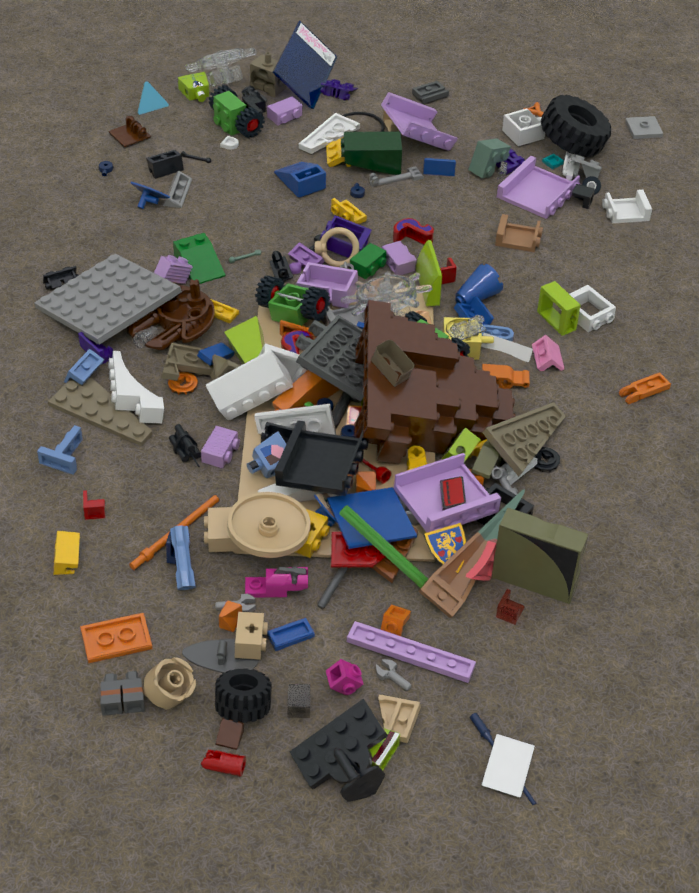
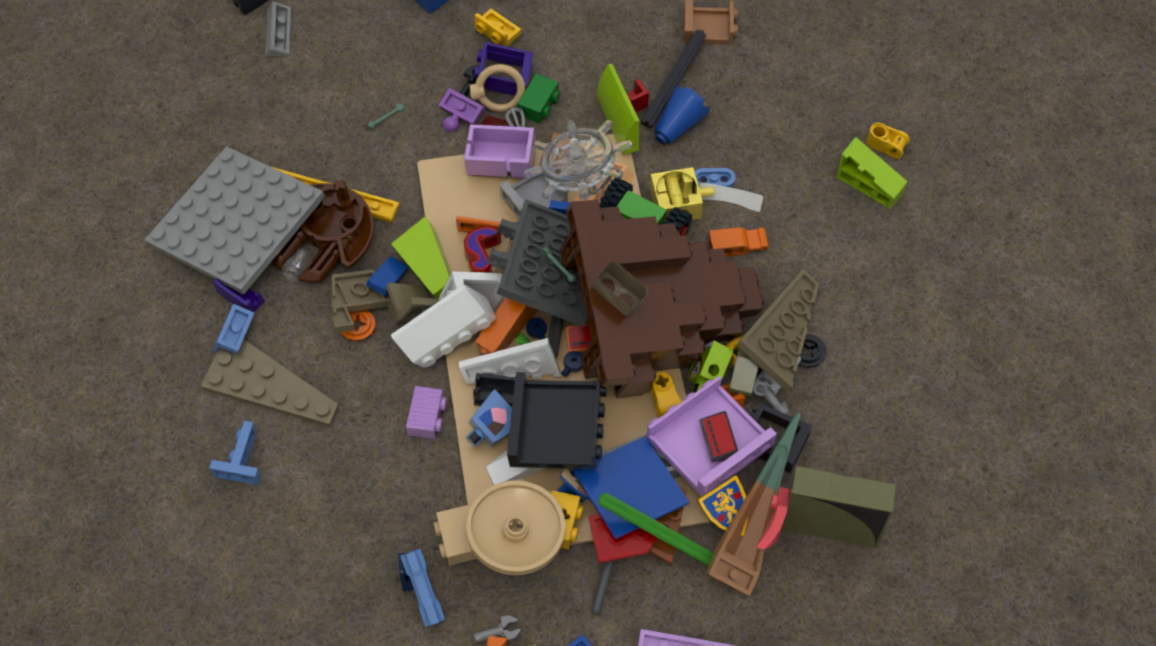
camera: 10 degrees left, 15 degrees up
(53, 279) = (160, 200): black hinge -> none
(66, 552) = (281, 603): yellow hinge -> none
(93, 508) = (296, 529): red panel -> none
(105, 167) = (178, 10): dark blue piece -> none
(131, 395) = (298, 358): white arch -> none
(148, 553) = (377, 582): orange bar -> none
(149, 195) = (241, 51): blue shield -> none
(173, 269) = (305, 161): lavender brick -> none
(184, 445) = (382, 417): black piece -> none
(201, 256) = (331, 135): green slope -> none
(277, 582) = (539, 594): dark pink plate -> none
(280, 266) = (434, 128): black hinge -> none
(291, 301) = (464, 187): brick -> none
(359, 367) = (570, 277): none -> sand green hinge
(365, 481) = (611, 433): orange slope -> none
(382, 473) = (625, 414): red hinge -> none
(395, 619) = (686, 616): orange bracket -> none
(399, 258) = (575, 87): lavender brick -> none
(412, 229) = (582, 39): red animal -> none
(467, 329) = (683, 189): clear hinge -> none
(473, 309) = (682, 153): blue bracket -> none
(485, 259) = (673, 78): none -> black axle
(508, 609) = (812, 572): clear red panel -> none
(547, 354) = (780, 197): bright pink panel -> none
(568, 319) = (781, 130): lime window -> none
(593, 322) = (806, 134): white window -> none
(625, 348) = (870, 174): none -> lime wedge
(645, 330) = (886, 140): none -> yellow piece
(645, 388) = (903, 224): orange hinge -> none

